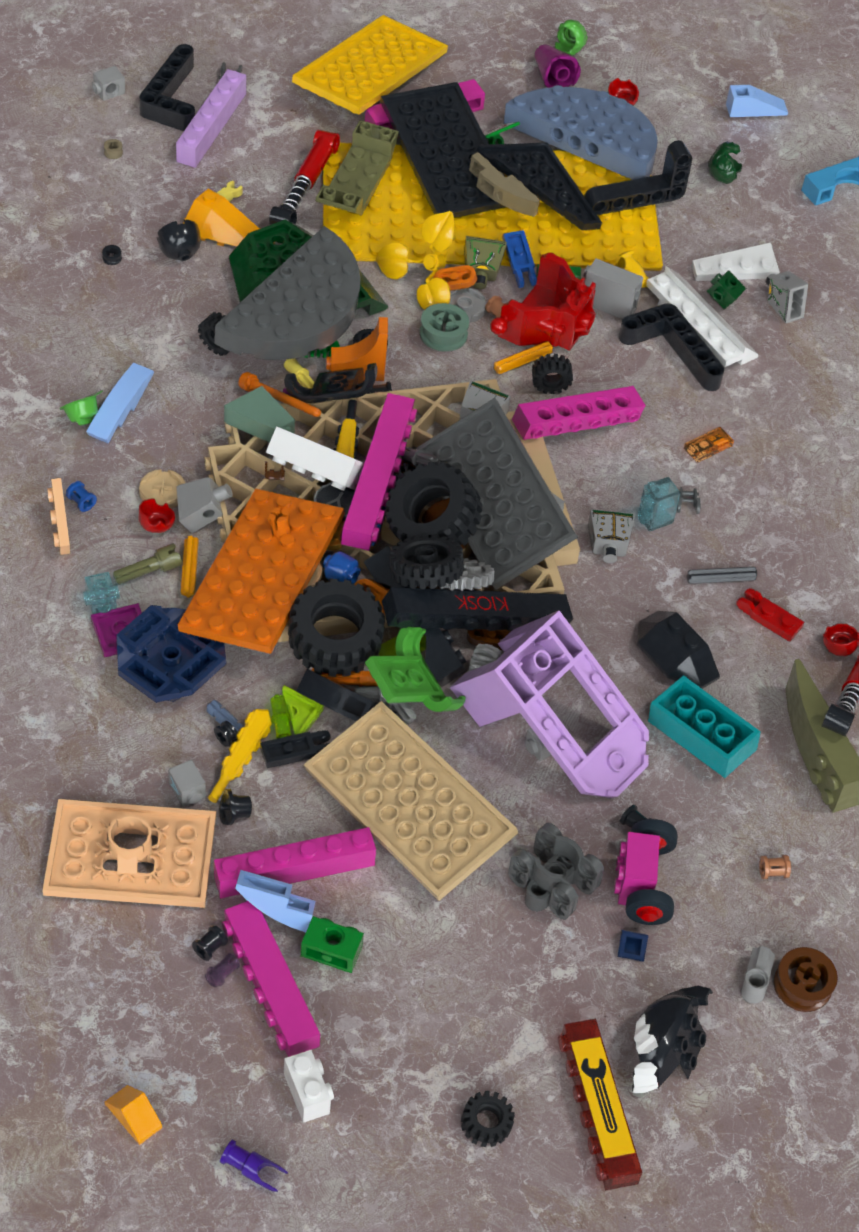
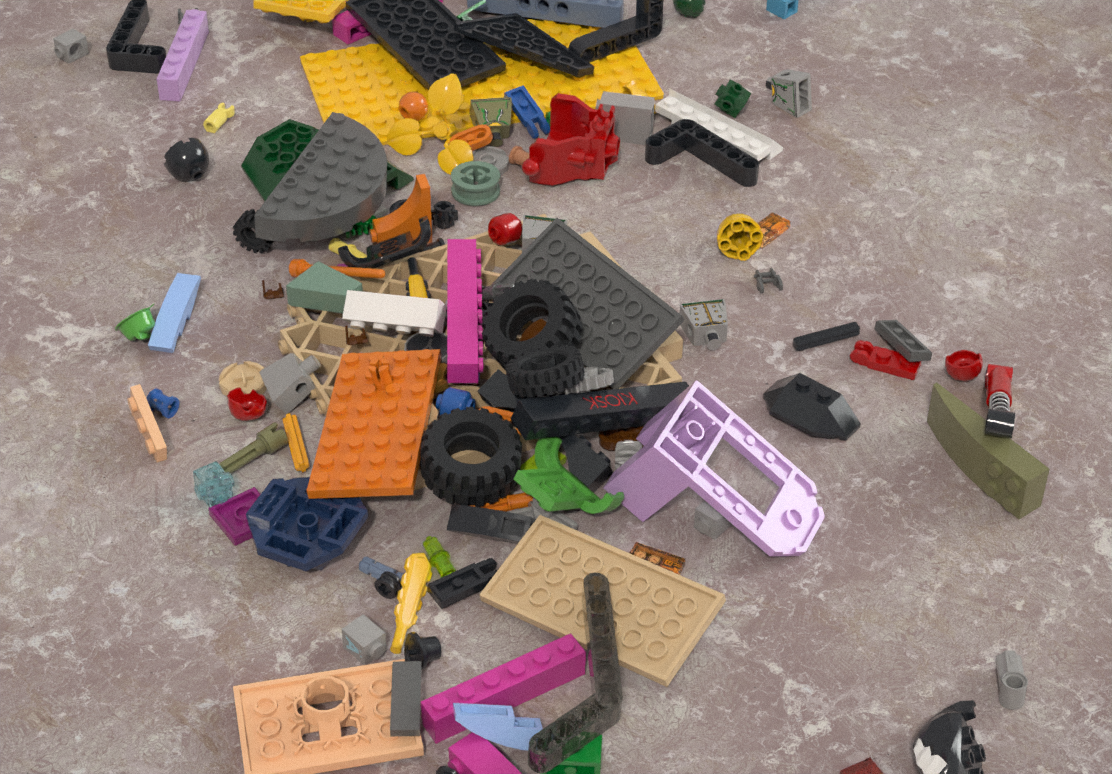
camera: 10 degrees left, 10 degrees down
(107, 250) = (119, 184): black bush -> none
(113, 149) = (93, 100): dark tan bush -> none
(203, 851) = (406, 698): none -> dark grey tile
(215, 402) = (272, 294): none -> reddish brown piece
(219, 219) = (222, 136): light orange wedge -> none
(302, 710) = (459, 546): lime tile -> none
(307, 934) = (604, 706): none -> clear smoke beam
(323, 146) = (302, 57): piece -> none
(361, 168) = (345, 67): olive slope -> none
(402, 355) = (444, 214): none -> black gear
(410, 229) = (413, 106): none -> orange piece
(450, 390) = (505, 229): none -> red head
(476, 771) = (659, 557): none -> clear orange tile
(506, 191) = (493, 55): dark tan slope -> none
(522, 357) = (561, 194): light orange axle -> none
(552, 365) = (601, 207): black tyre -> none
(557, 874) = (772, 630): dark grey piece -> none
(578, 412) = (638, 223): dark pink brick -> none
(632, 816) = (834, 569): black bush -> none
(632, 945) = (875, 683): dark blue slope -> none
(639, 872) = (860, 612): brick -> none
(658, 504) = (743, 285): clear light blue brick -> none
(675, 447) = (739, 235): none -> yellow piece
(704, 726) = (866, 468): teal brick -> none
(746, 263) = (748, 73): white wing -> none
(783, 870) = (993, 580): nougat bush -> none
(792, 599) = (903, 340): none -> dark grey tile
(799, 992) = (1056, 683): reddish brown wheel -> none

